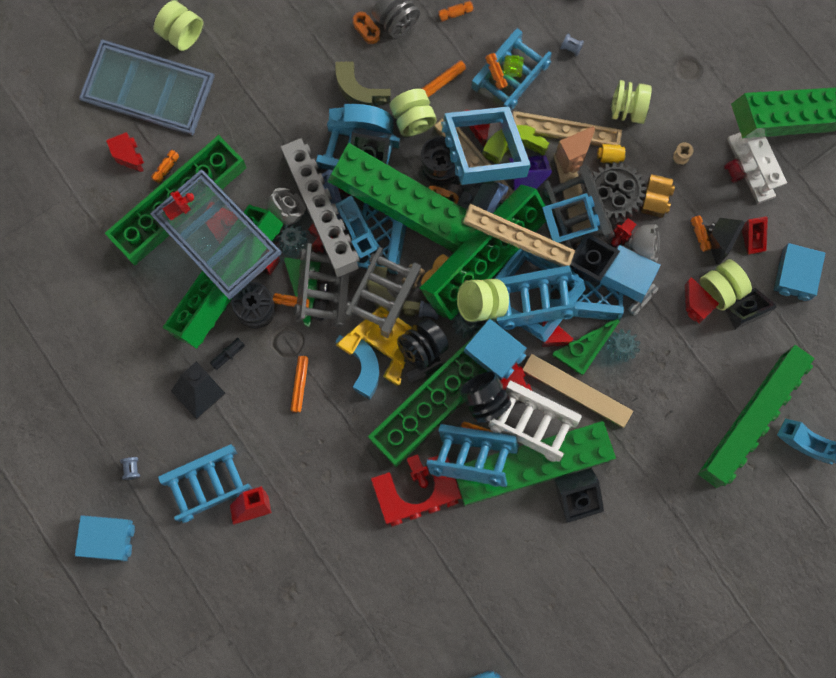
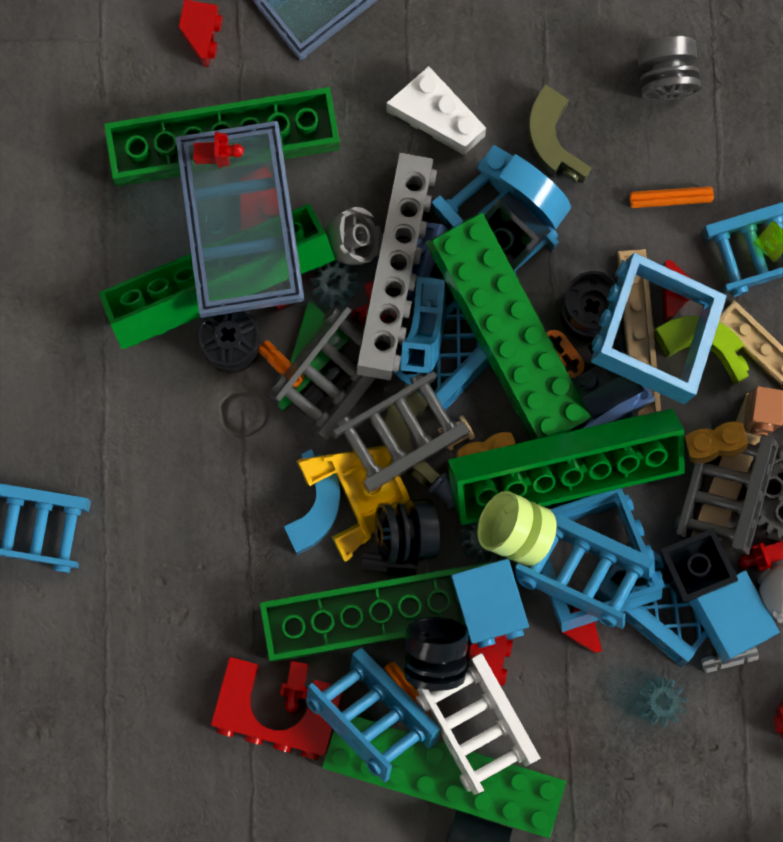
camera: 30 degrees right, 5 degrees up
(165, 166) = (238, 80): orange axle -> none
(197, 390) = (91, 400): black slope -> none
(227, 353) = (158, 378): black axle -> none
(250, 505) = (61, 590): red slope -> none
(286, 113) = (437, 111): none -> white wedge
(299, 384) = (222, 476): orange axle -> none
(369, 25) = (612, 60): orange beam -> none
(413, 112) = (599, 219): yellowish green wheel -> none
(456, 10) = (752, 113): orange axle -> none
(496, 71) = (745, 234): orange axle -> none
(518, 236) = (617, 477): tan tile -> none
(537, 173) = (708, 404): dark purple slope -> none
(561, 183) = (725, 441): none -> pearl gold brick
(577, 391) = (563, 720): tan tile -> none
(581, 353) = (604, 675): green wing -> none
(593, 219) = (674, 486): dark azure window -> none

